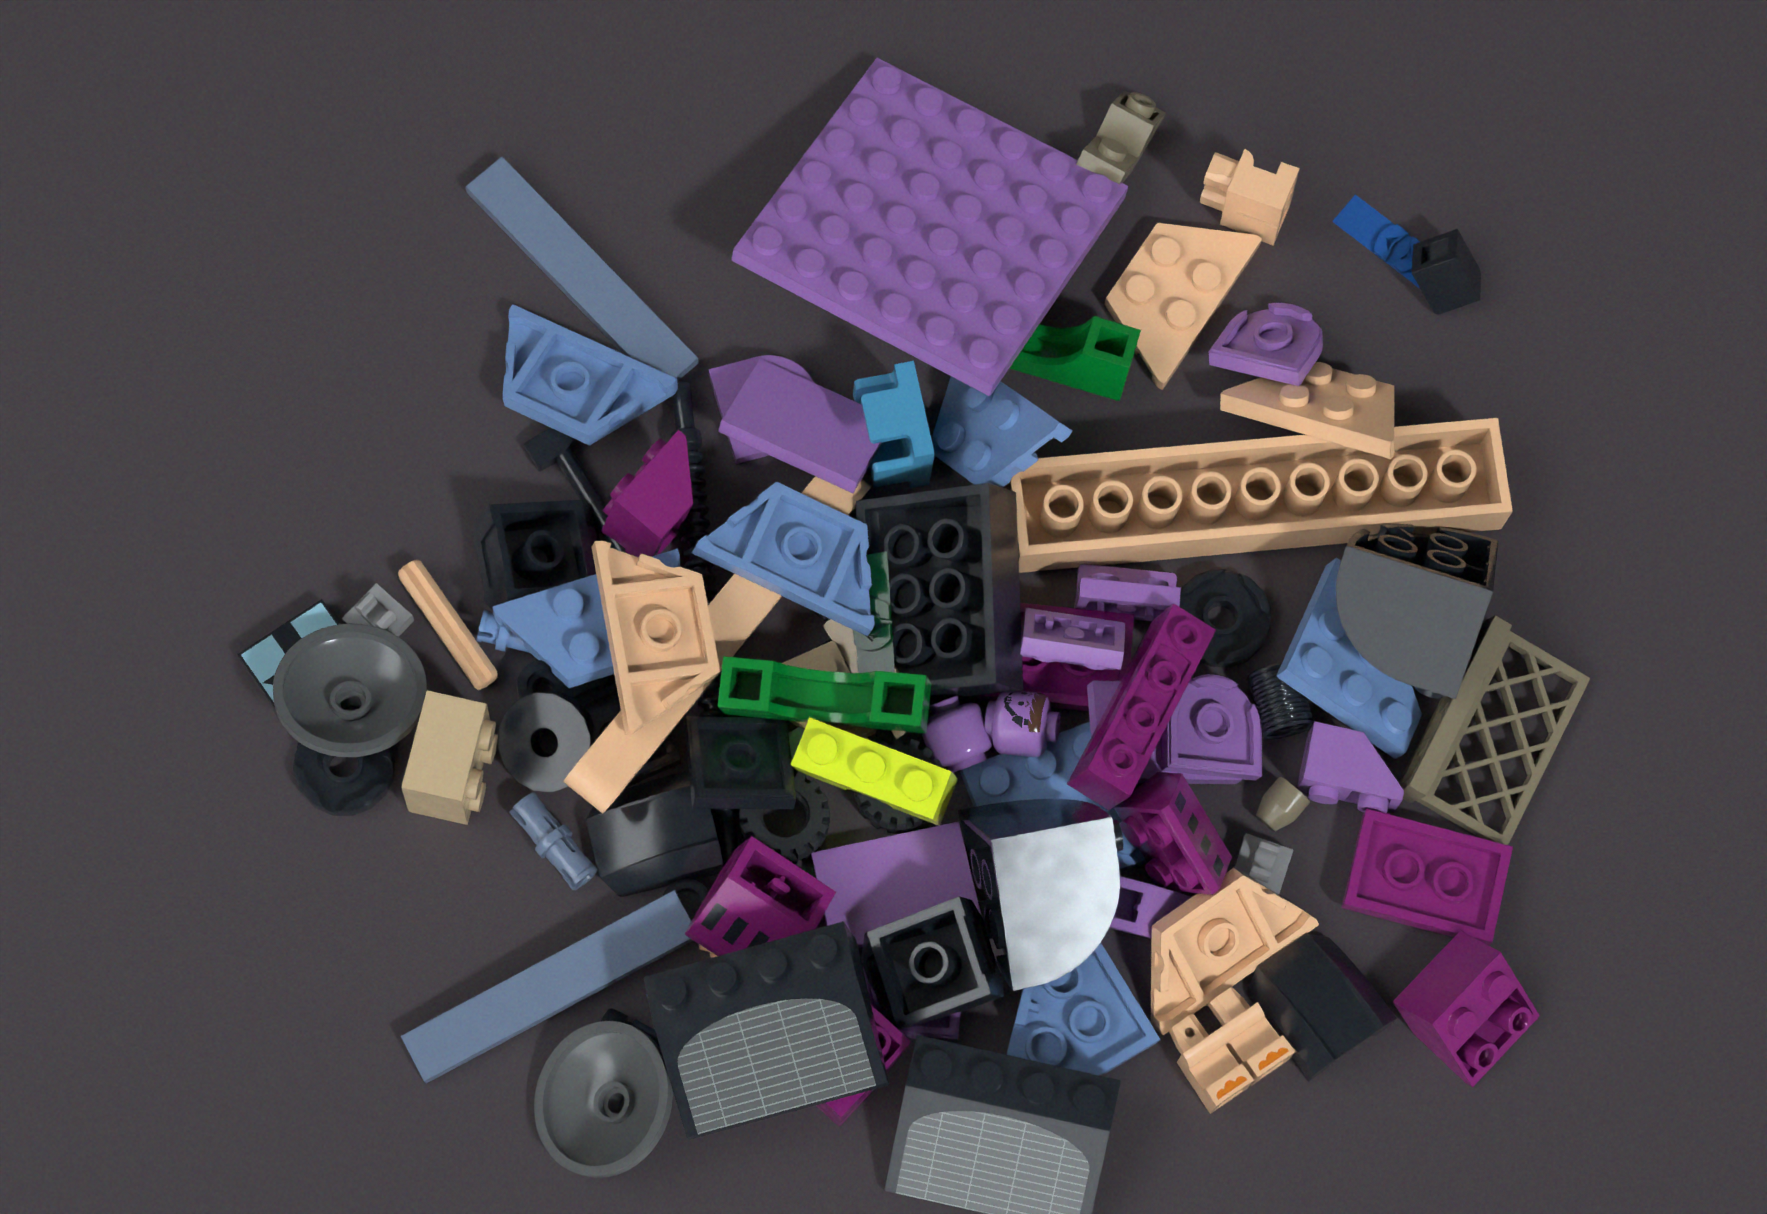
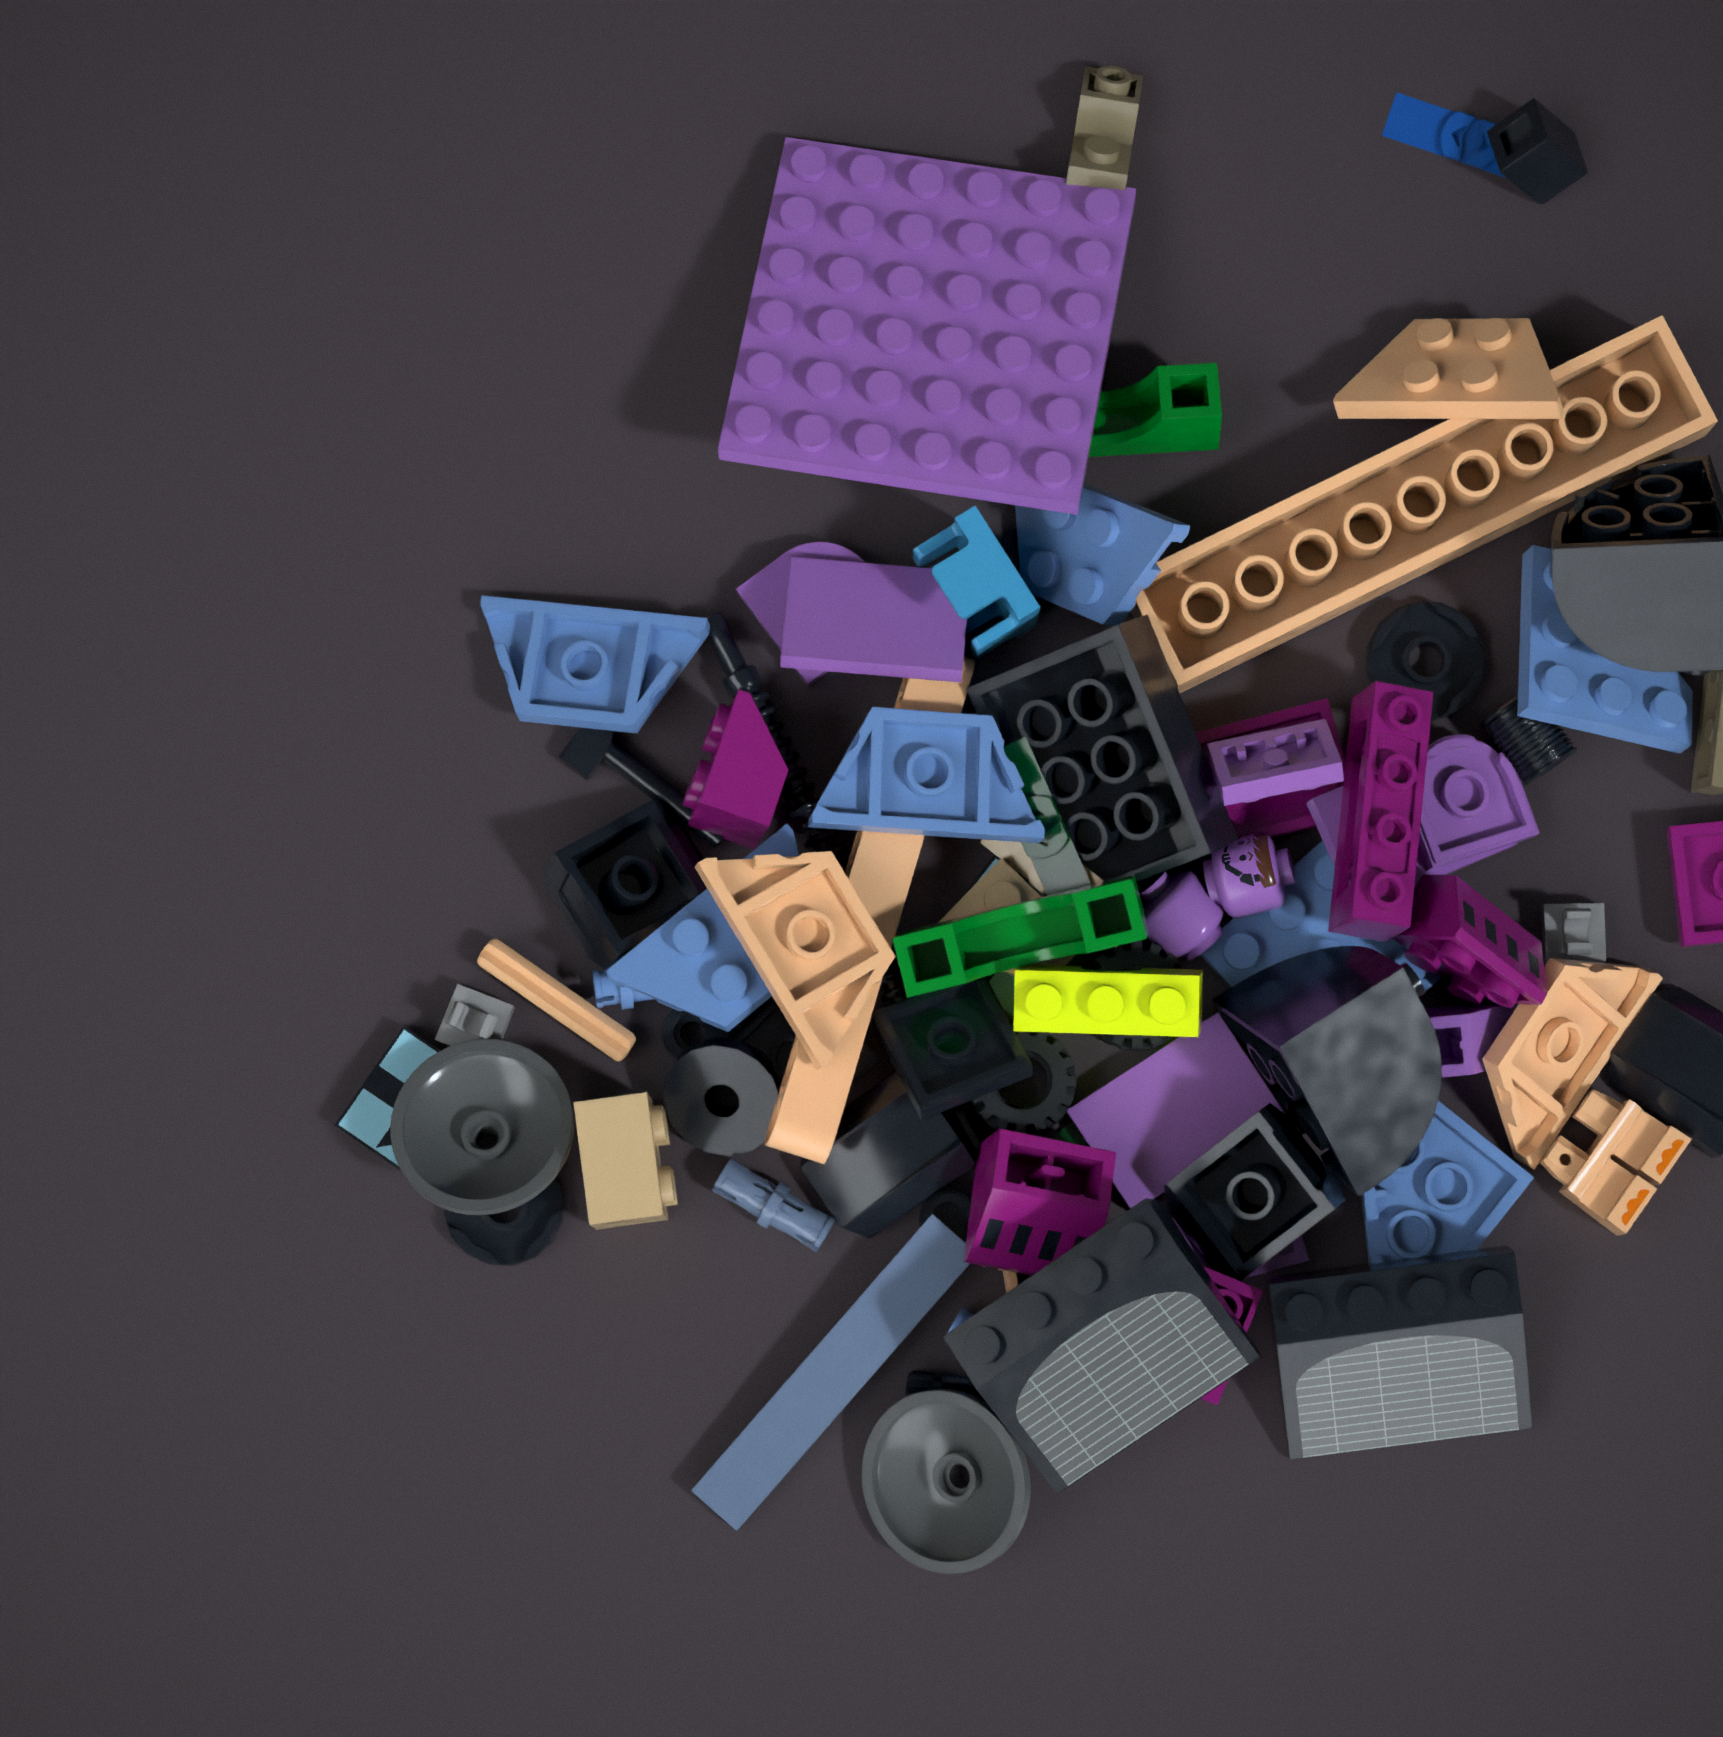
camera: 10 degrees left, 10 degrees up
(578, 270) = (542, 526): sand blue tile -> none
(1126, 591) = (1309, 673): medium lavender bracket -> none
(1176, 289) = (1233, 289): light nougat wing -> none
(1249, 196) = (1280, 151): light nougat hips -> none
(1270, 344) = (1368, 317): medium lavender tile -> none
(1281, 805) = (1571, 856): dark tan hose -> none
(1346, 768) = (1631, 786): medium lavender slope -> none

